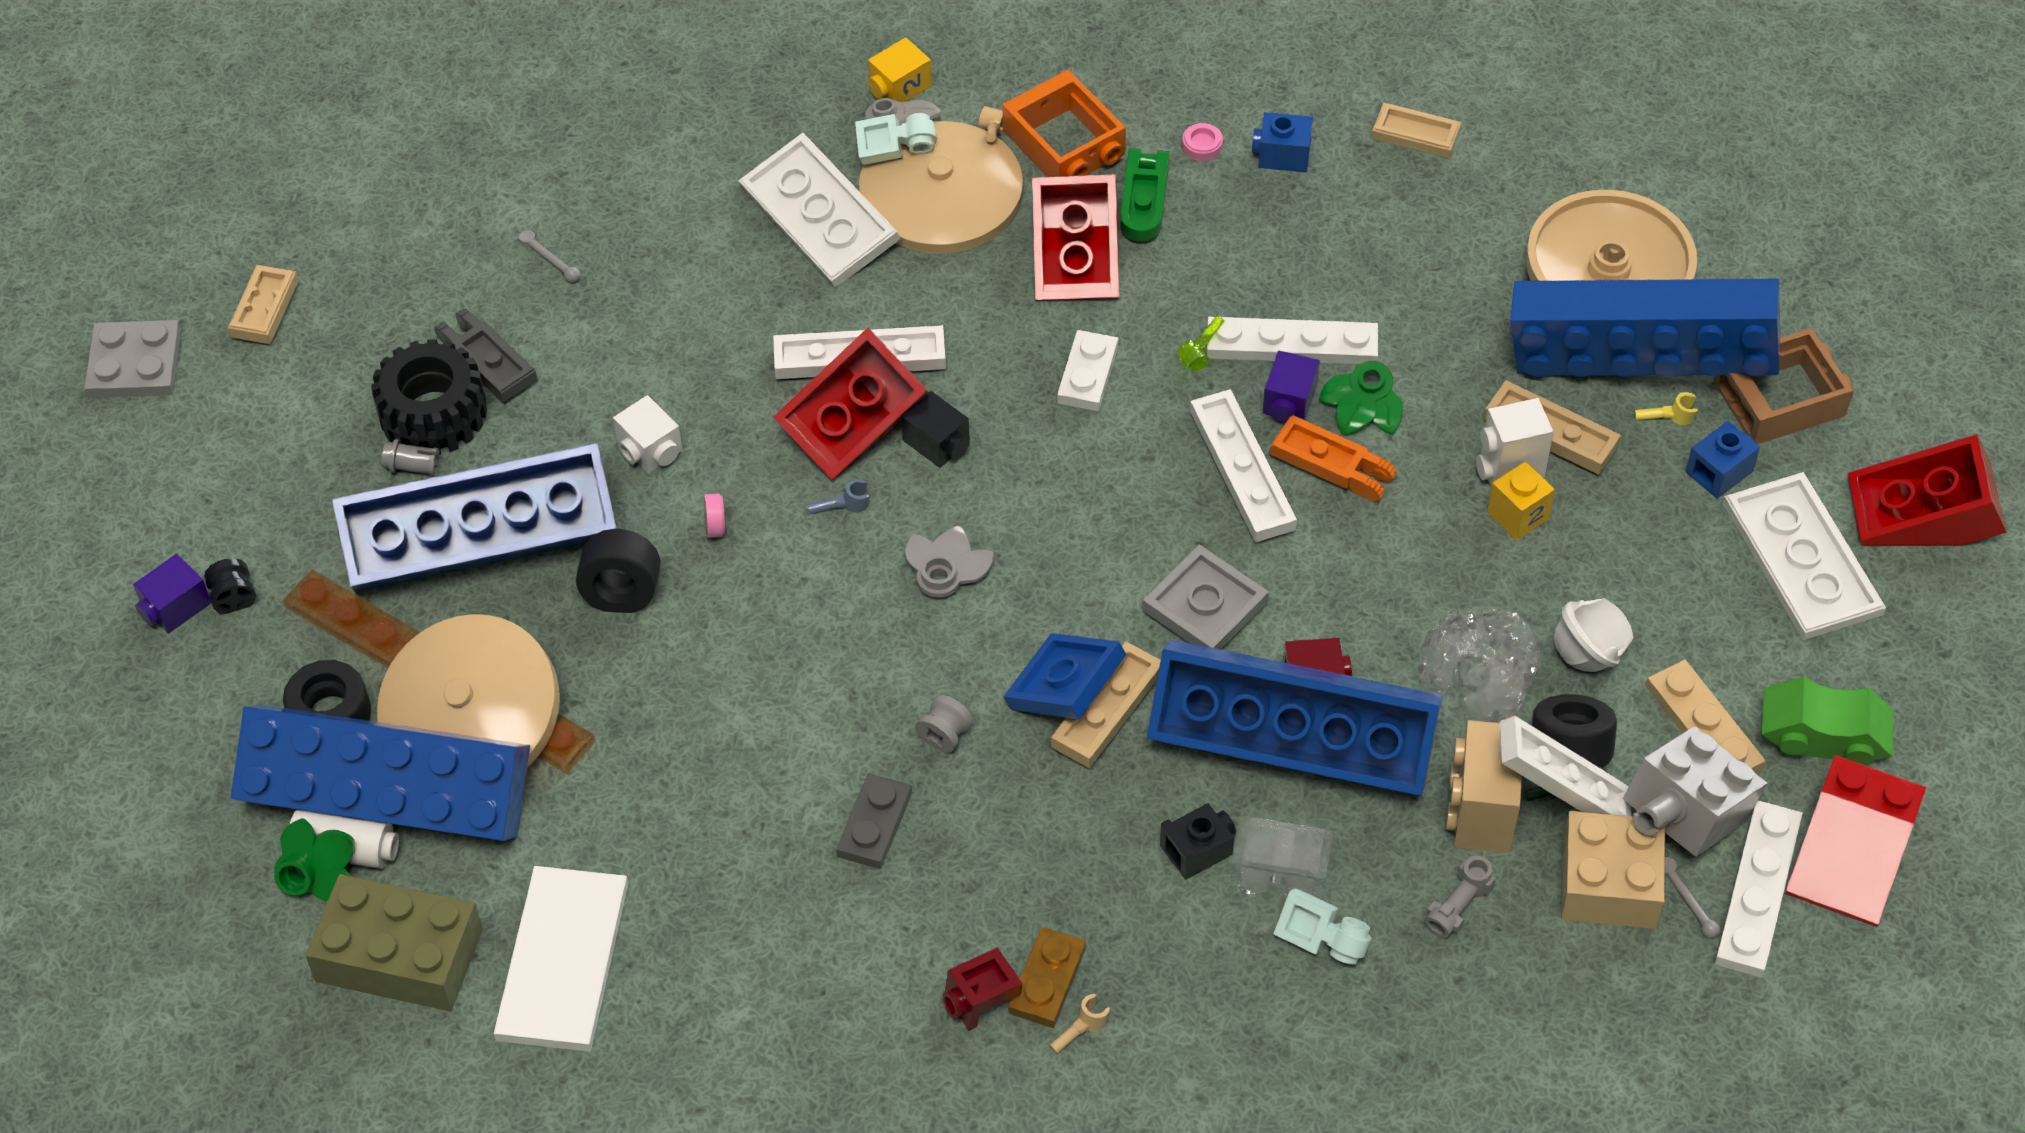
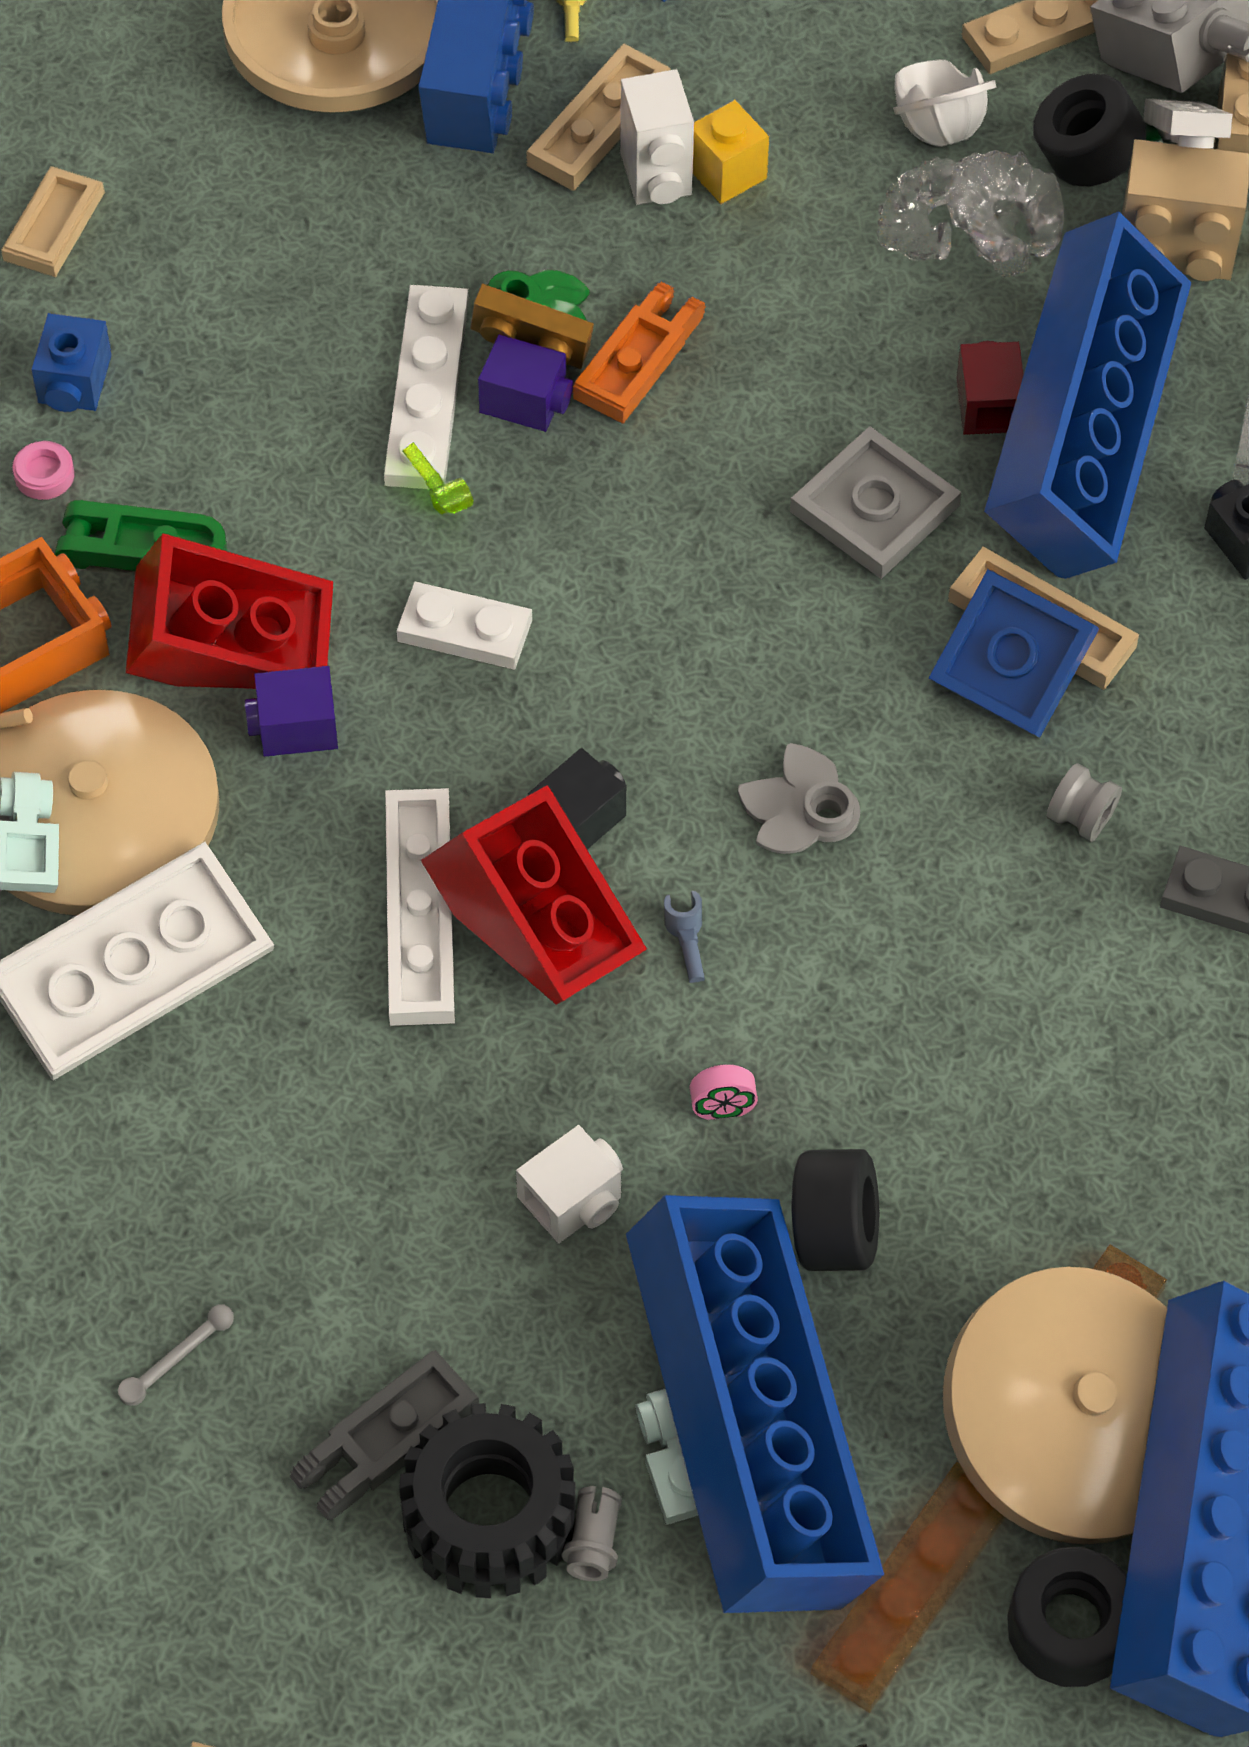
camera: 90 degrees left, 5 degrees up
(1005, 277) = (293, 711): none -> dark purple brick
(1243, 466) = (648, 449): white plate -> none
(1334, 372) = (525, 320): none -> pearl gold plate

